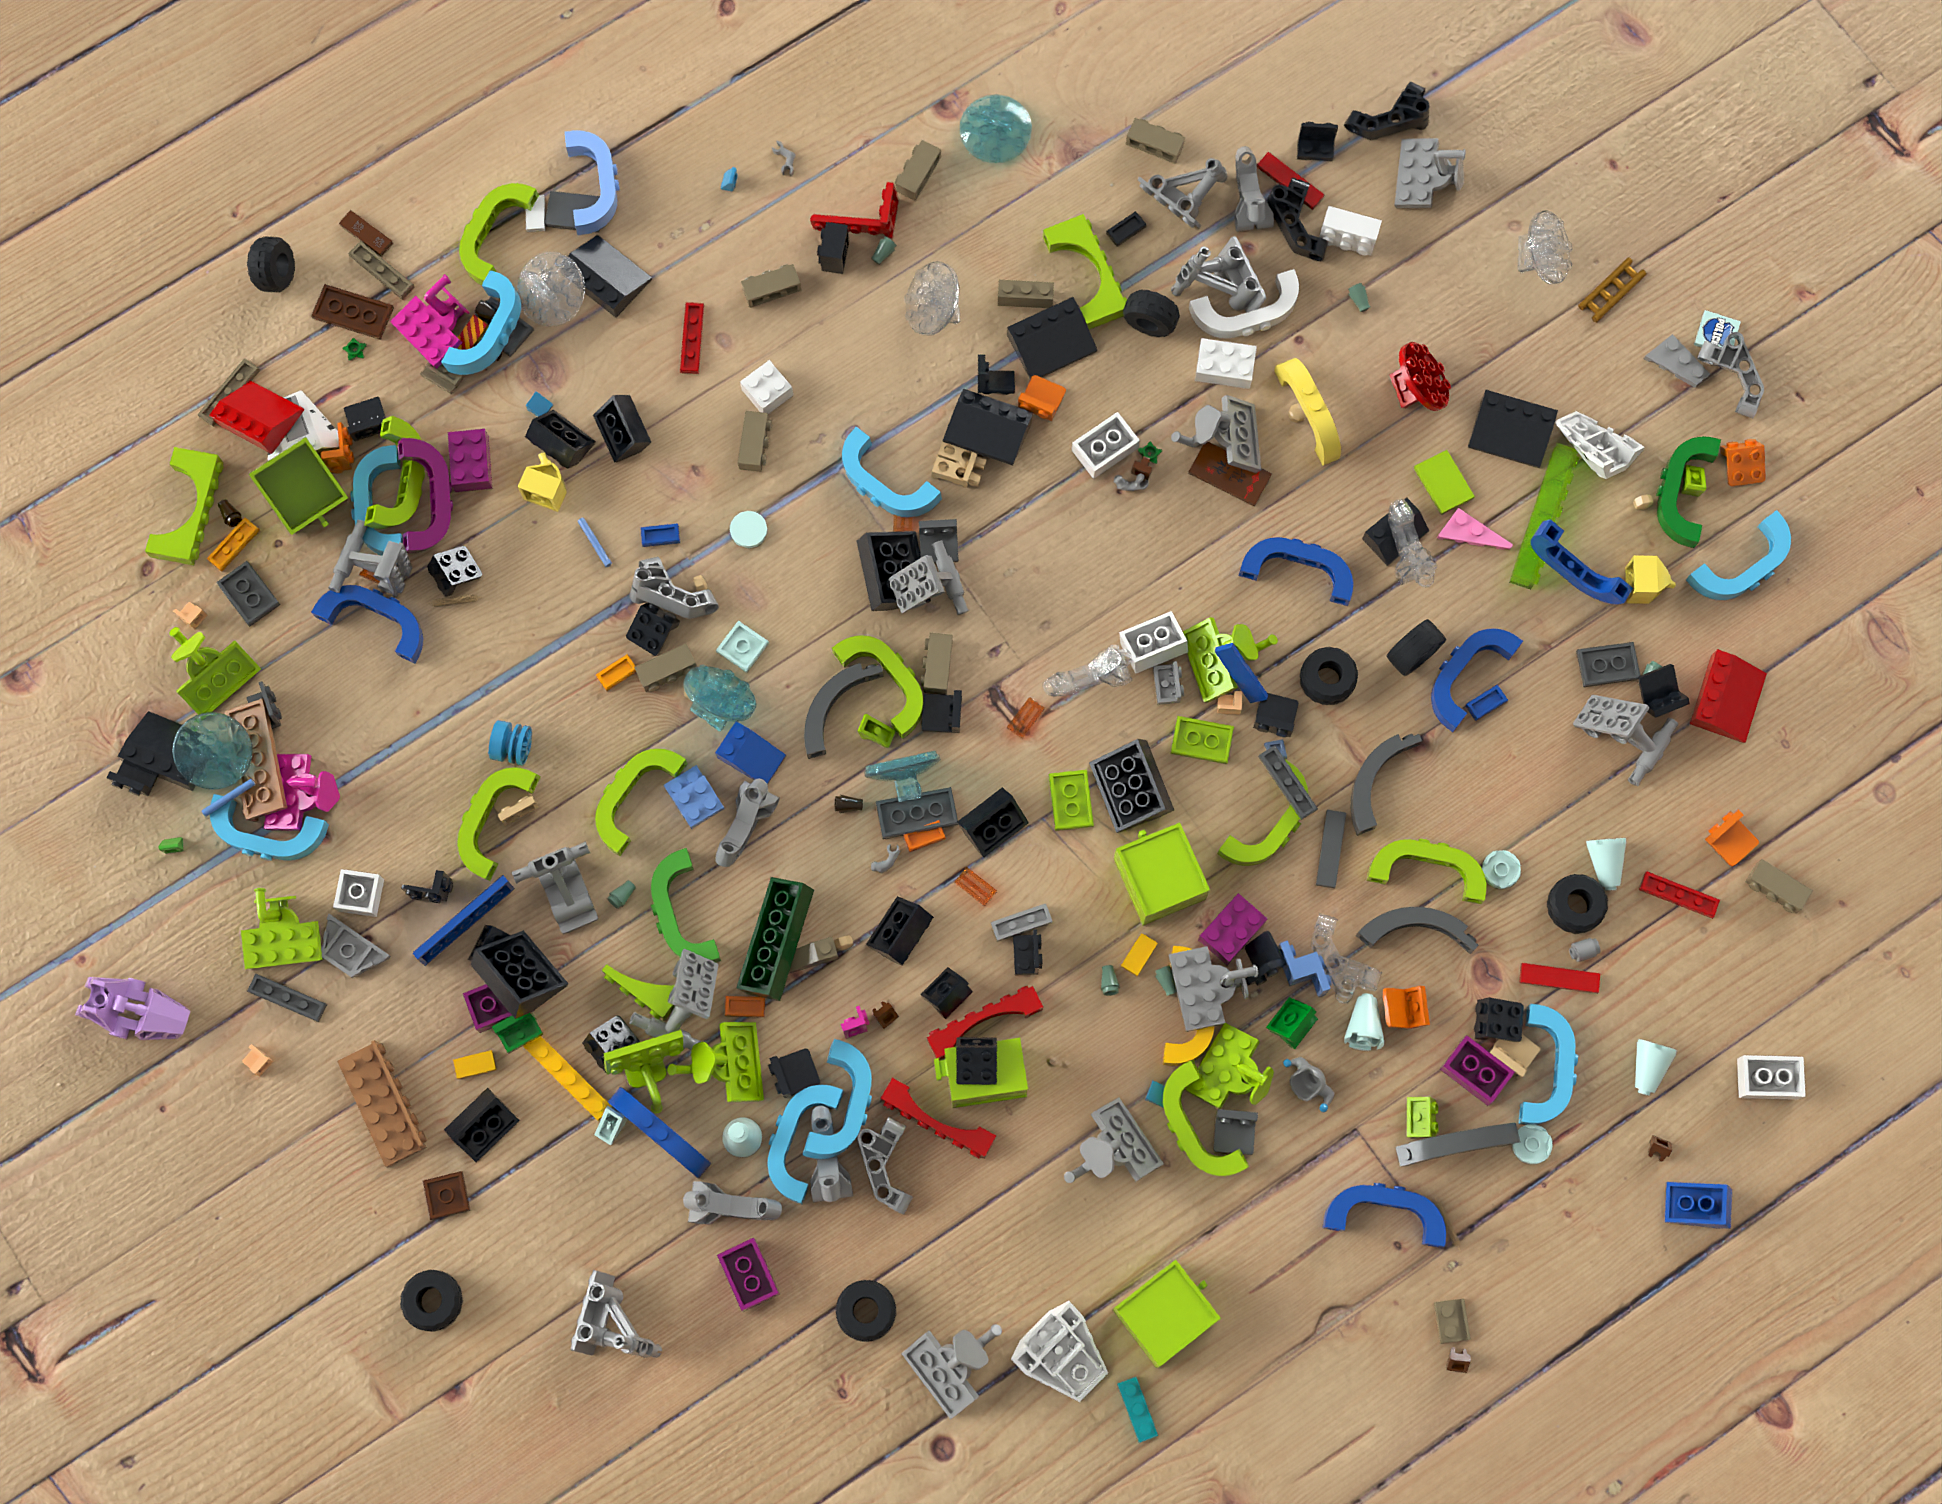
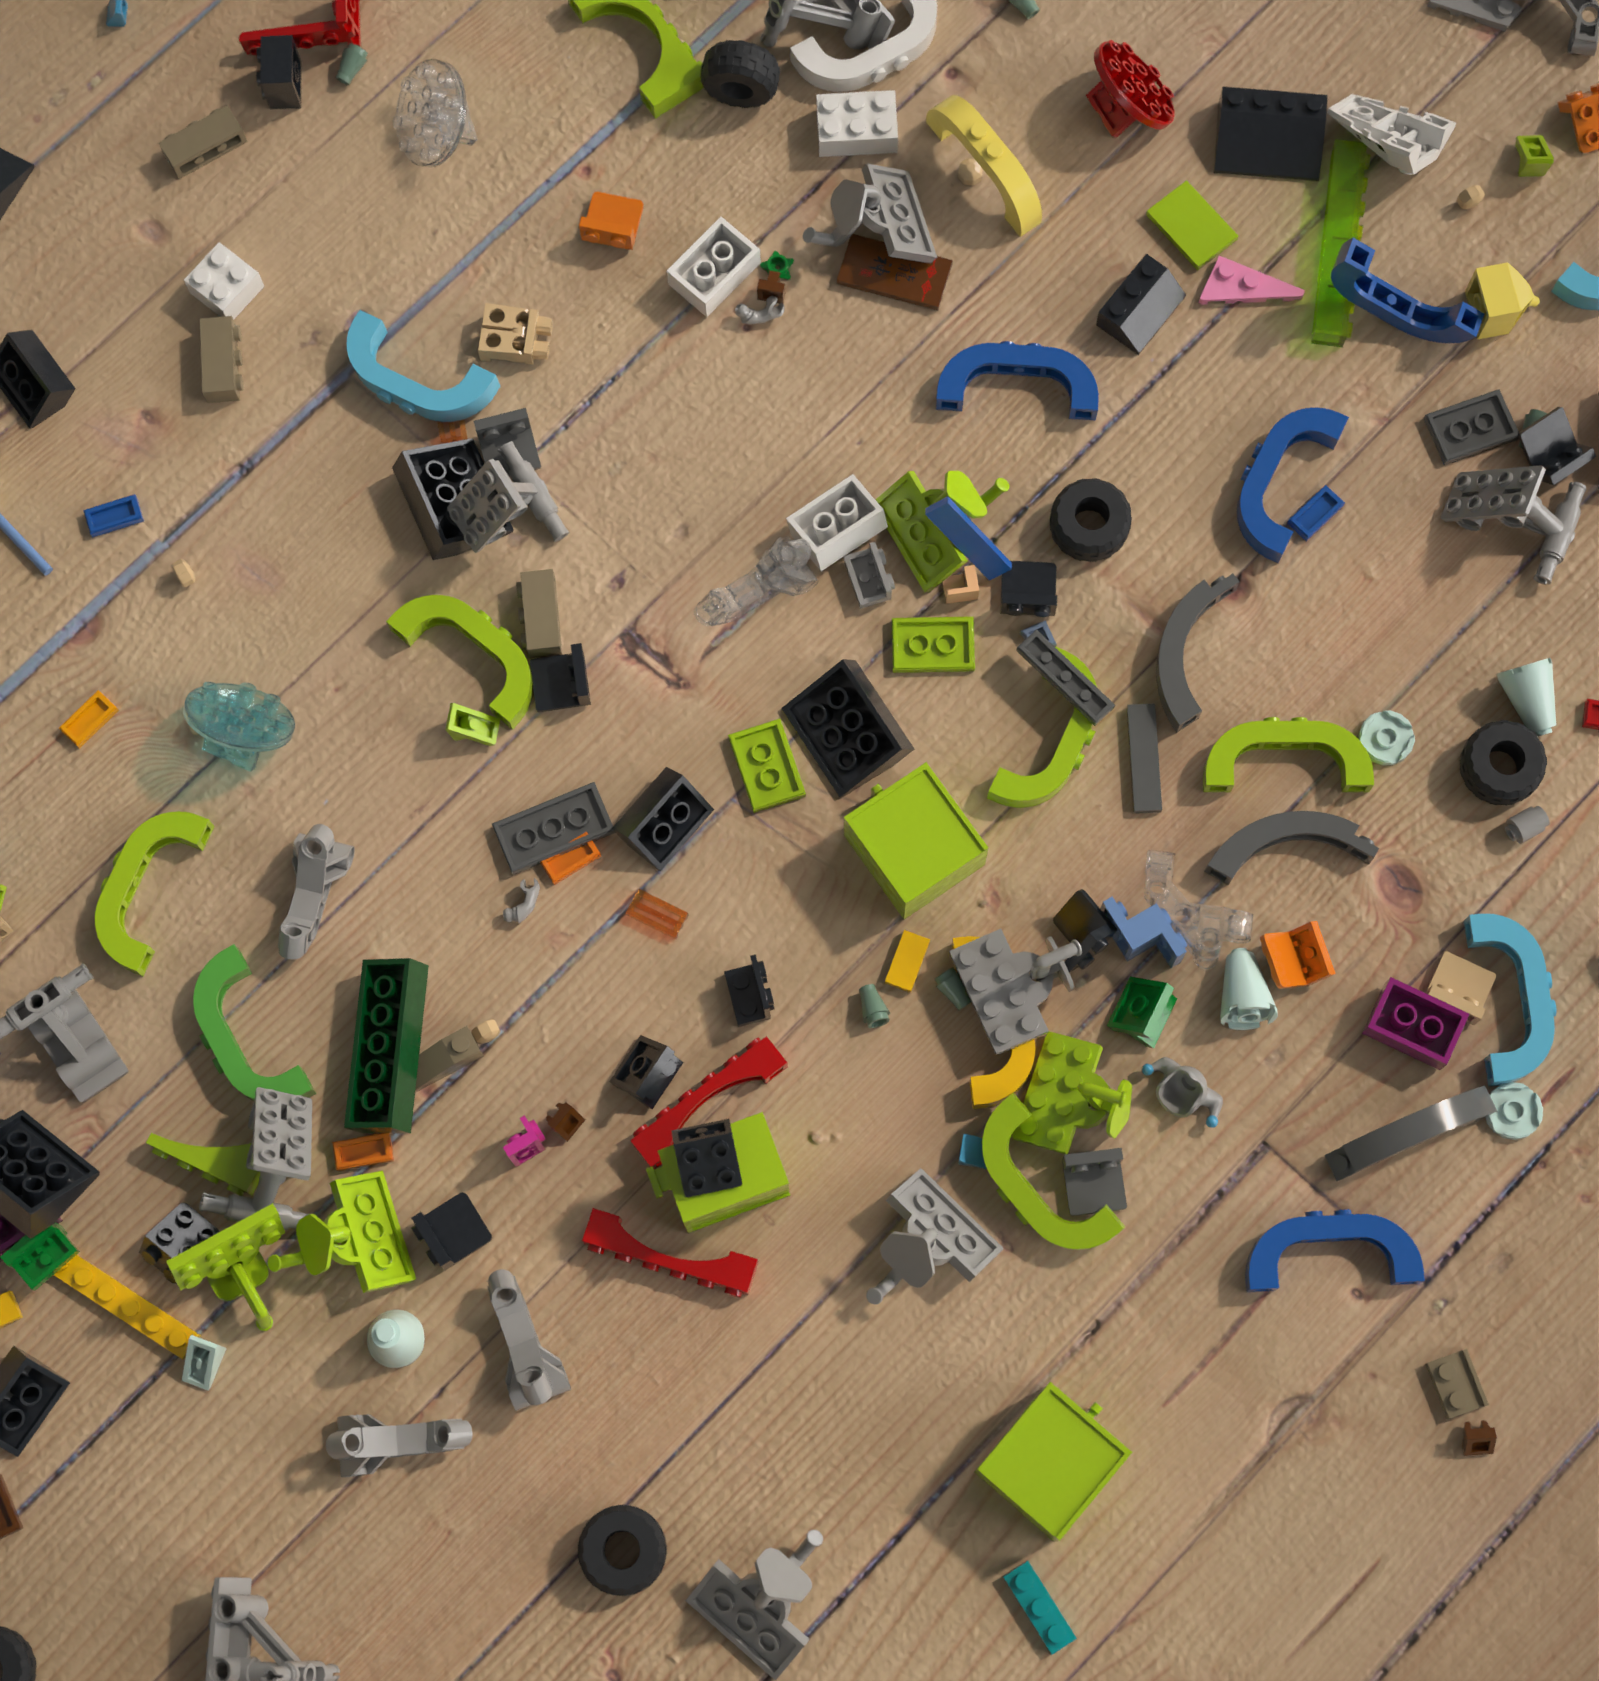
camera: 10 degrees left, 0 degrees up
(621, 894) = (154, 1030): sand green cone -> none
(651, 628) = (125, 646): black bracket -> none
(654, 586) = (116, 586): light grey connector -> none
(659, 1132) = (274, 1358): blue arch -> none
(665, 668) = (155, 698): dark tan brick -> none
(692, 338) = (106, 236): red tile -> none
(694, 796) = (231, 870): medium blue bracket -> none
(742, 646) = (260, 646): light aqua tile -> none
(748, 529) = (237, 482): light aqua tile -> none
(748, 1274) = (442, 1534): magenta brick -> none
(749, 753) = (299, 793): blue slope -> none
(787, 1124) = (456, 1310): medium azure arch -> none
(825, 700) = (393, 693): dark grey arch -> none
(847, 804) = (452, 835): dark brown cone -> none
(854, 1062) = (537, 1200): medium azure arch -> none
(880, 1149) = (596, 1314): light grey connector -> none
(900, 930) = (562, 997): black slope -> none
(904, 773) = (522, 774): clear light blue bracket -> none
(988, 427) = (545, 273): black slope -> none
(994, 381) = (540, 210): black bracket -> none
(1021, 922) = (732, 950): light grey plate -> none
(1025, 293) = (560, 83): dark tan brick -> none
(1034, 705) = (689, 643): clear orange tile -> none
(1051, 339) = (609, 137): black slope -> none
(1061, 1353) = (914, 1550): white wedge -> none
(1232, 929) = (1031, 897): magenta brick -> none
(1414, 558) = (1174, 334): clear connector -> none
(1416, 647) = (1203, 454): black tyre -> none
(1422, 1117) = (1352, 1105): lime bracket -> none
(1447, 1224) = (1416, 1243): tan piece -> none
(1498, 1019) = (1429, 946): black bracket -> none
(1559, 978) = (1501, 871): red tile -> none
(1670, 520) = (1511, 212): green arch -> none

